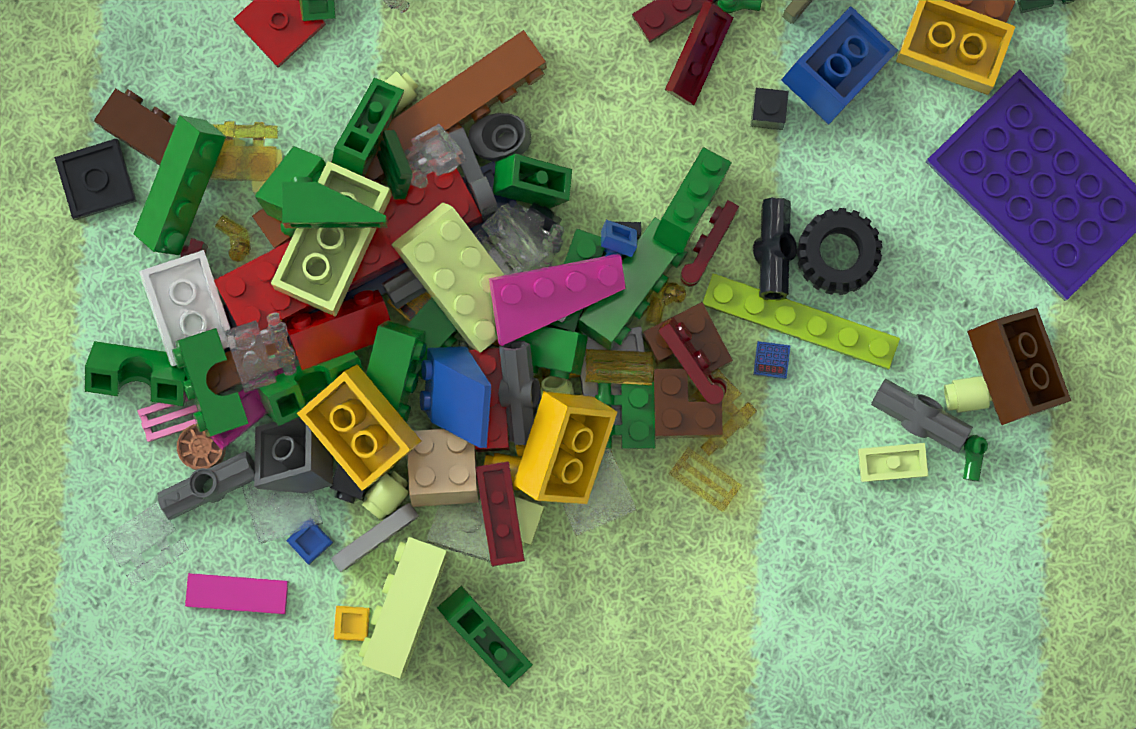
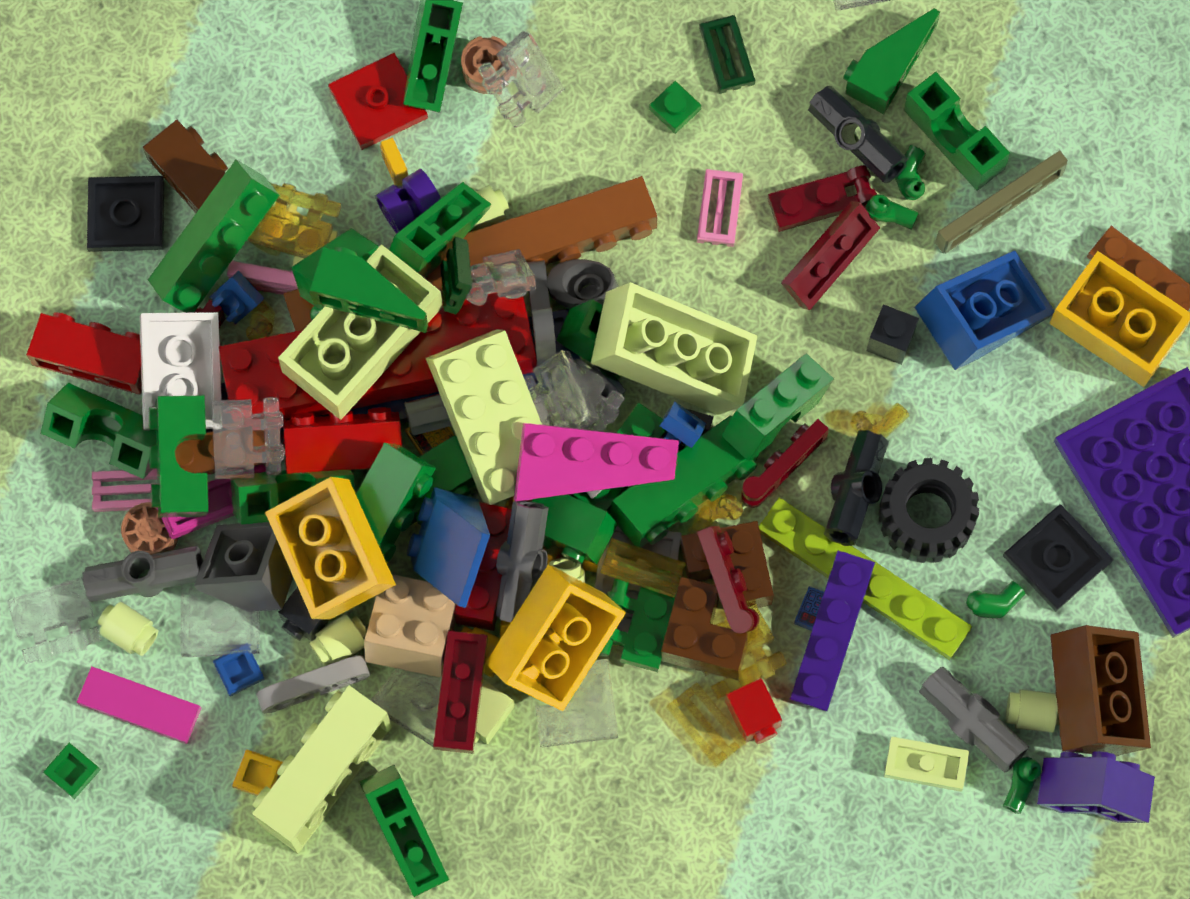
camera: 15 degrees right, 10 degrees down
(102, 309) = (87, 352): none -> red brick
(198, 664) = (71, 770): none -> green plate
(208, 534) = (127, 628): none -> yellowish green brick
(213, 229) = (236, 297): none -> blue tile
(229, 205) = (265, 278): none -> bright pink tile
(310, 73) = (393, 161): none -> yellow tile
(335, 93) = (409, 201): none -> dark purple wheel
(593, 175) = (674, 349): none -> yellowish green brick
(598, 63) = (716, 237): none -> bright pink tile
(742, 459) = (754, 712): none -> red brick
(777, 188) = (880, 424): none -> clear yellow arm
(787, 374) = (832, 630): none -> dark purple plate
(914, 314) = (994, 605): none -> green arm
(954, 259) = (1058, 557): none -> black tile
(1038, 444) = (1096, 787): none -> dark purple brick

